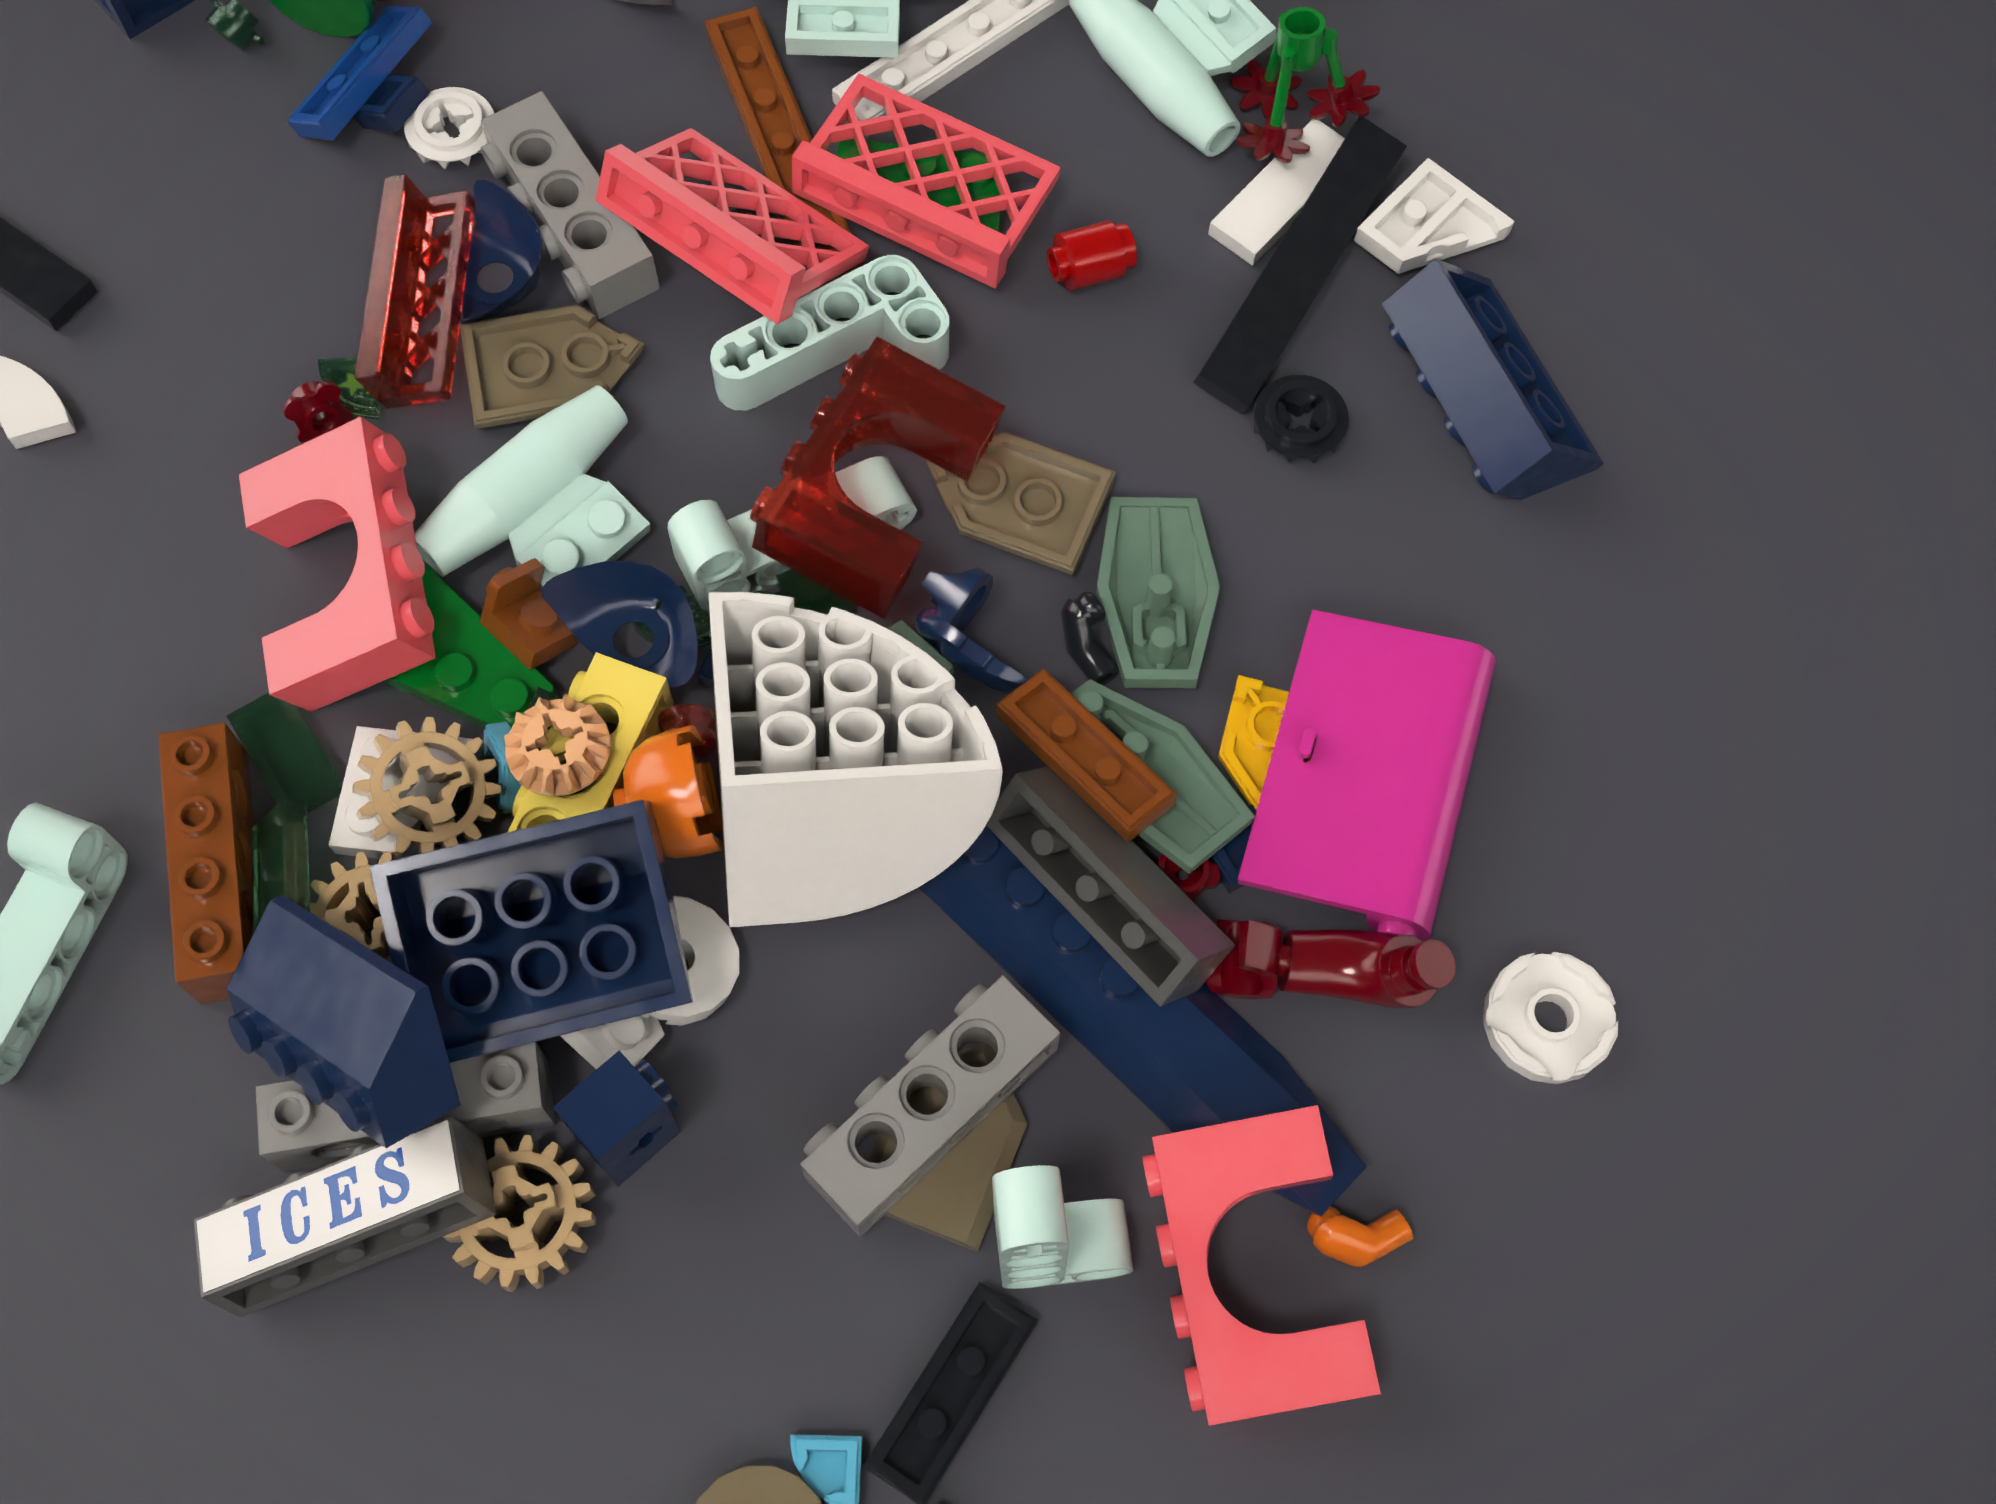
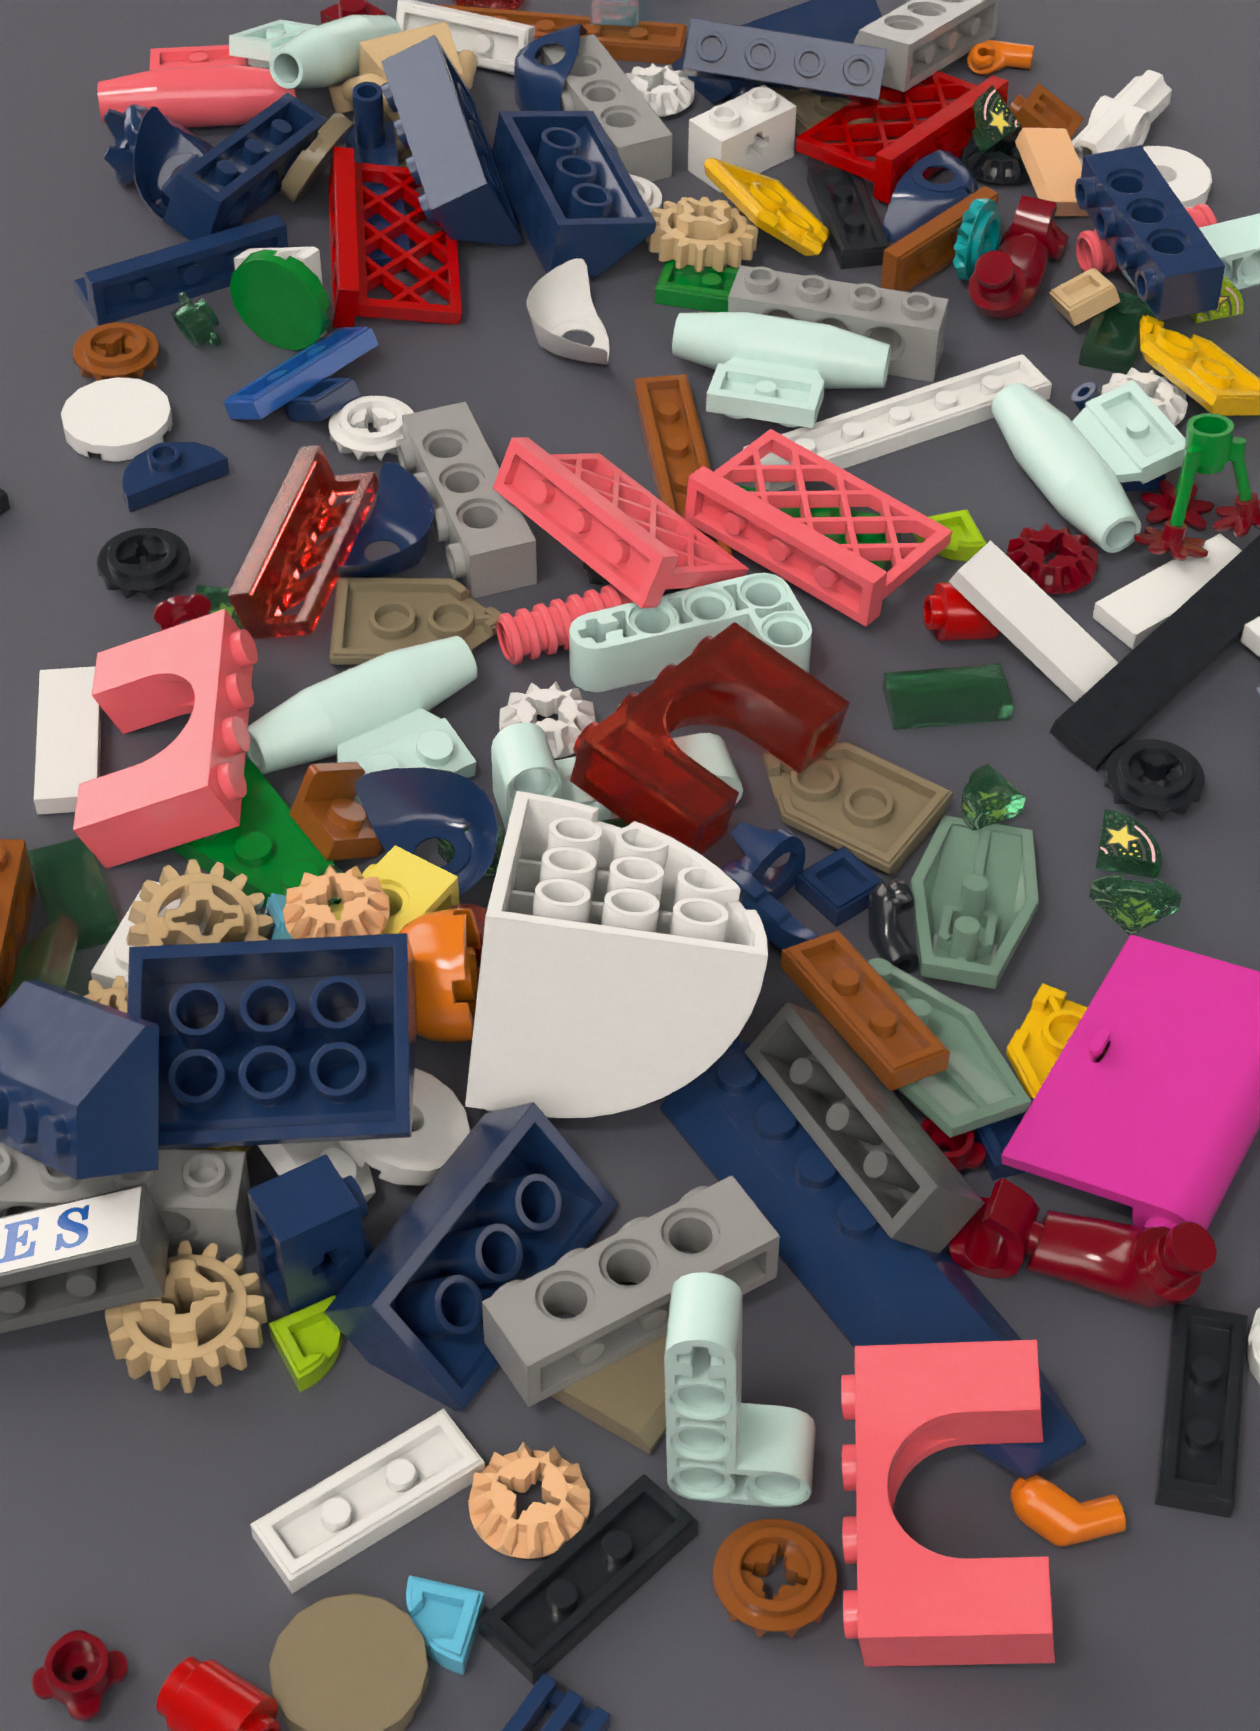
camera: 15 degrees right, 20 degrees down
(146, 61) = (102, 348): none -> dark orange gear
(180, 160) = (116, 418): none -> white tile
(230, 342) = (163, 550): none -> black gear
(232, 571) = (66, 738): none -> white tile
(252, 217) = (170, 470): none -> dark blue plate
(640, 1205) = (307, 1343): none -> lime tile
(691, 346) = (549, 627): none -> coral piece
(715, 479) = (572, 712): none -> white gear
(733, 1360) = (367, 1500): none -> white tile
(768, 1081) = (489, 1216): none -> dark blue slope
(900, 1356) = (543, 1526): none -> light nougat gear
(1028, 597) = (837, 886): none -> dark blue tile
(1065, 153) = (965, 536): none -> lime tile
(1088, 357) = (947, 696): none -> clear green tile
(1141, 1338) = (752, 1552): none -> dark orange gear
(1150, 472) = (989, 799): none -> clear green tile
(1158, 264) = (1033, 621): none -> white tile
(1177, 187) = (1064, 573): none -> dark red gear
(1288, 501) = (1127, 847): none -> clear green tile
(1304, 561) = (1134, 903): none -> clear green tile
(1457, 1101) = (1202, 1411): none -> black tile

